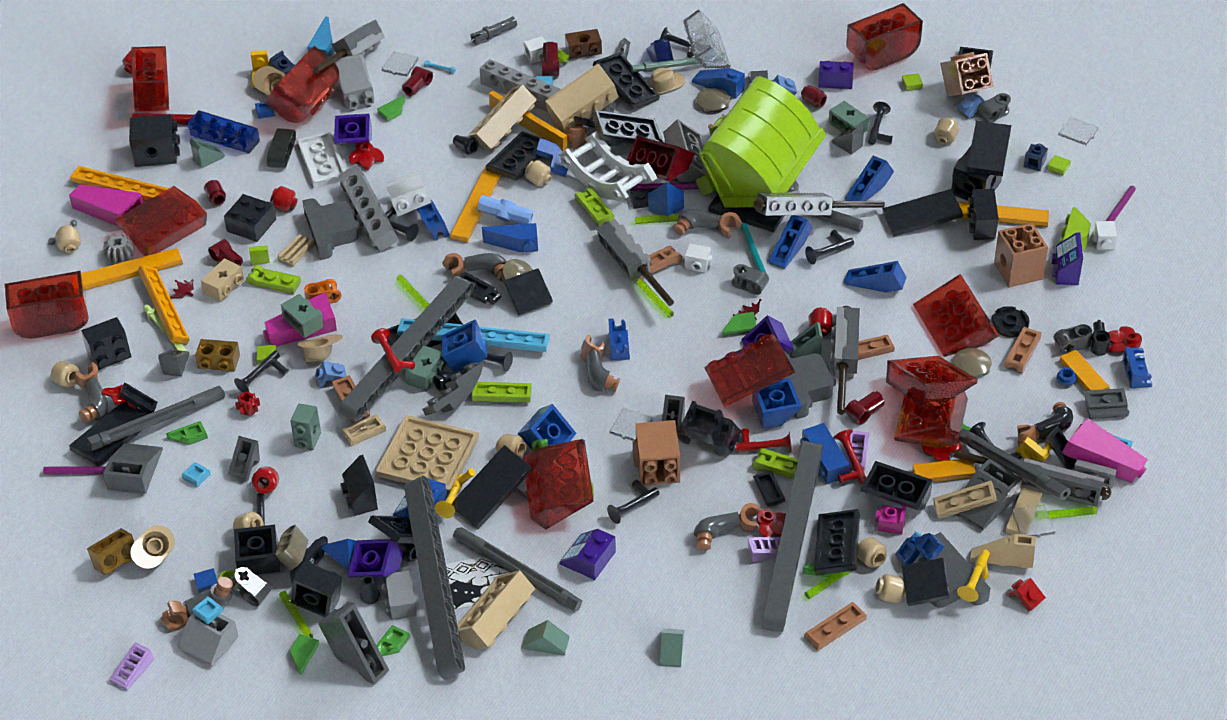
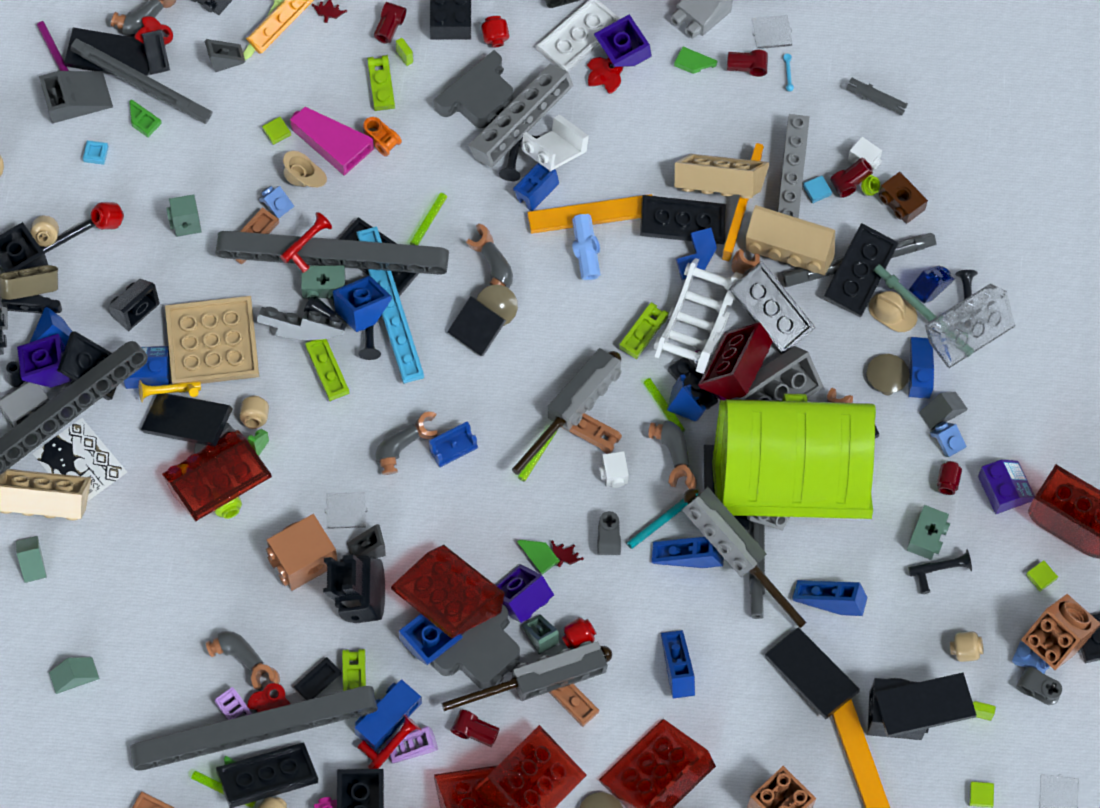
camera: 60 degrees right, 20 degrees up
(217, 355) = (250, 88): pearl gold brick -> none
(222, 280) = (352, 38): tan brick -> none
(243, 384) = (263, 138): black piece -> none
(244, 456) = (123, 183): dark grey slope -> none
(247, 403) = (199, 148): red gear -> none
(293, 249) = (432, 77): tan tile -> none
(302, 315) = (321, 136): sand green brick -> none
(364, 432) = (229, 282): tan tile -> none
(467, 144) = (673, 155): black cone -> none
(482, 291) = (460, 275): black hinge -> none
(511, 565) = (104, 491): dark grey piece -> none
(512, 237) = (555, 280): blue slope -> none
(538, 173) = (663, 251): tan head -> none
(549, 425) = (290, 436): blue slope -> none
(584, 121) = (758, 255): black tile -> none
(590, 553) = (151, 548): dark purple slope -> none
(616, 512) = (255, 568): black piece -> none
(746, 445) = (386, 671): red piece -> none
(813, 254) = (719, 608): black piece -> none
(850, 140) = (895, 546): dark grey slope -> none
(983, 214) = (827, 739): black brick -> none
(1036, 152) = (972, 768): dark blue brick -> none

